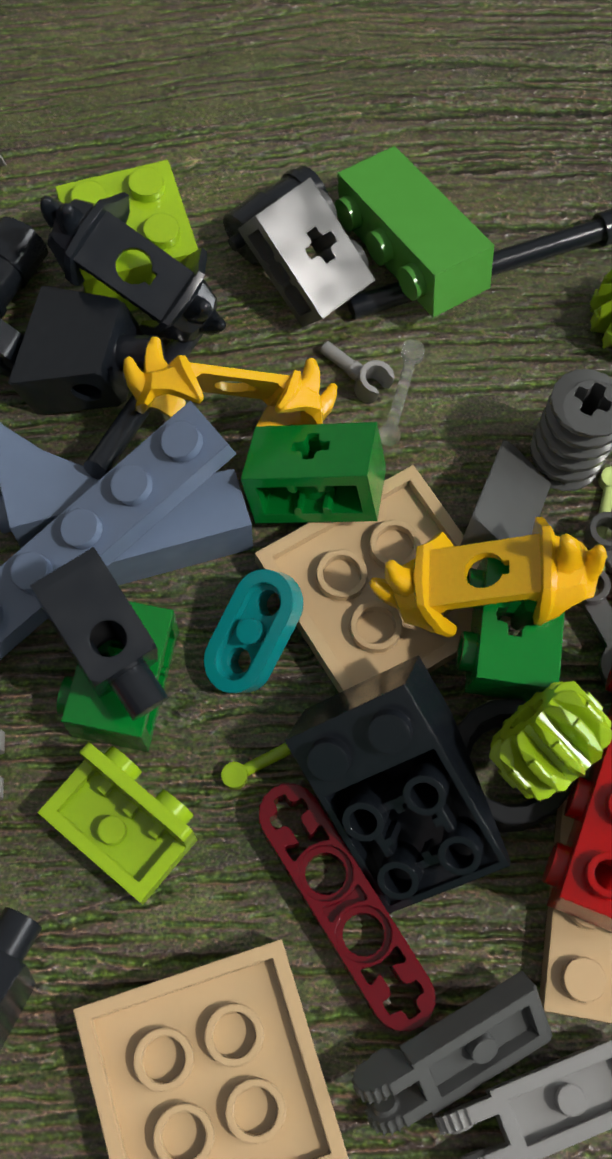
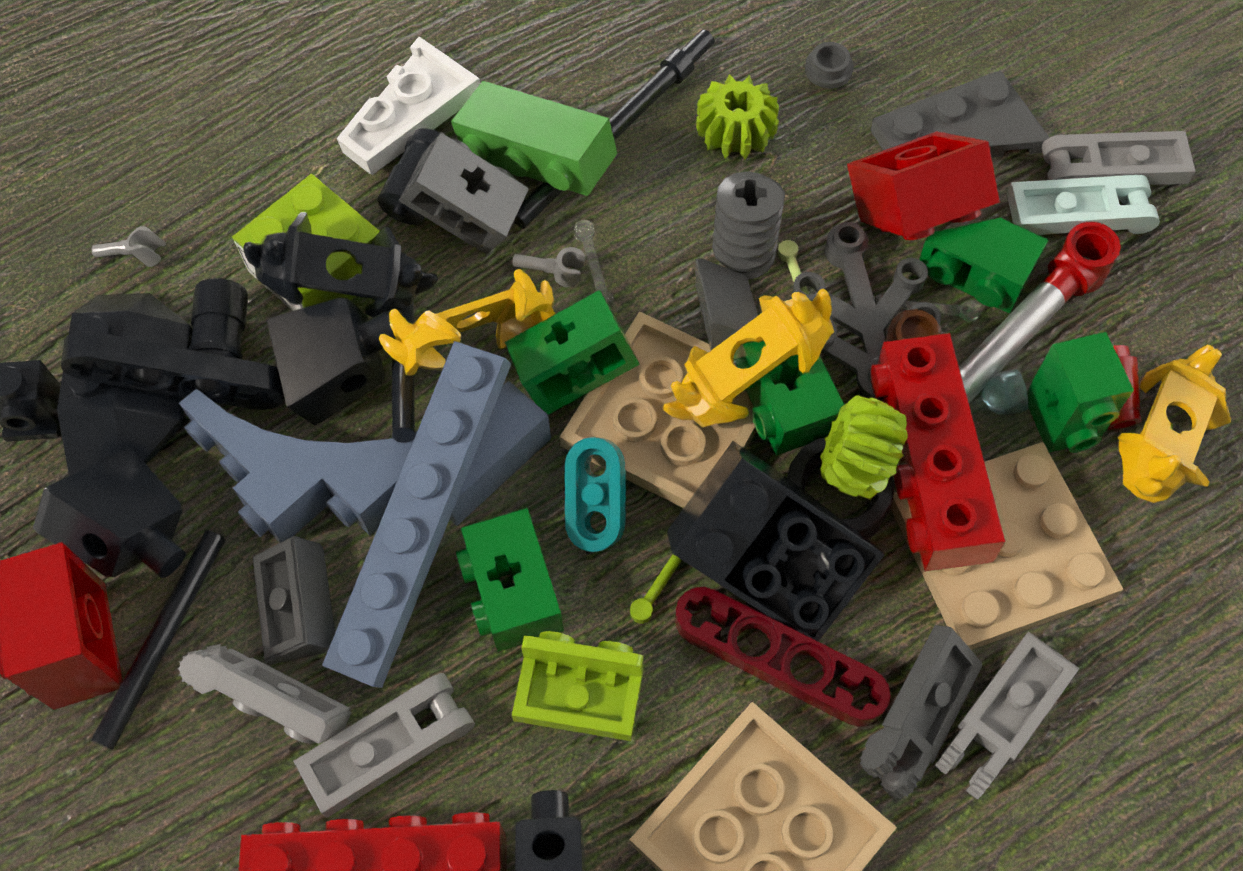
camera: 25 degrees left, 5 degrees down
(87, 612) = (474, 532): black torso -> none
(324, 137) = (417, 97): none -> white wing

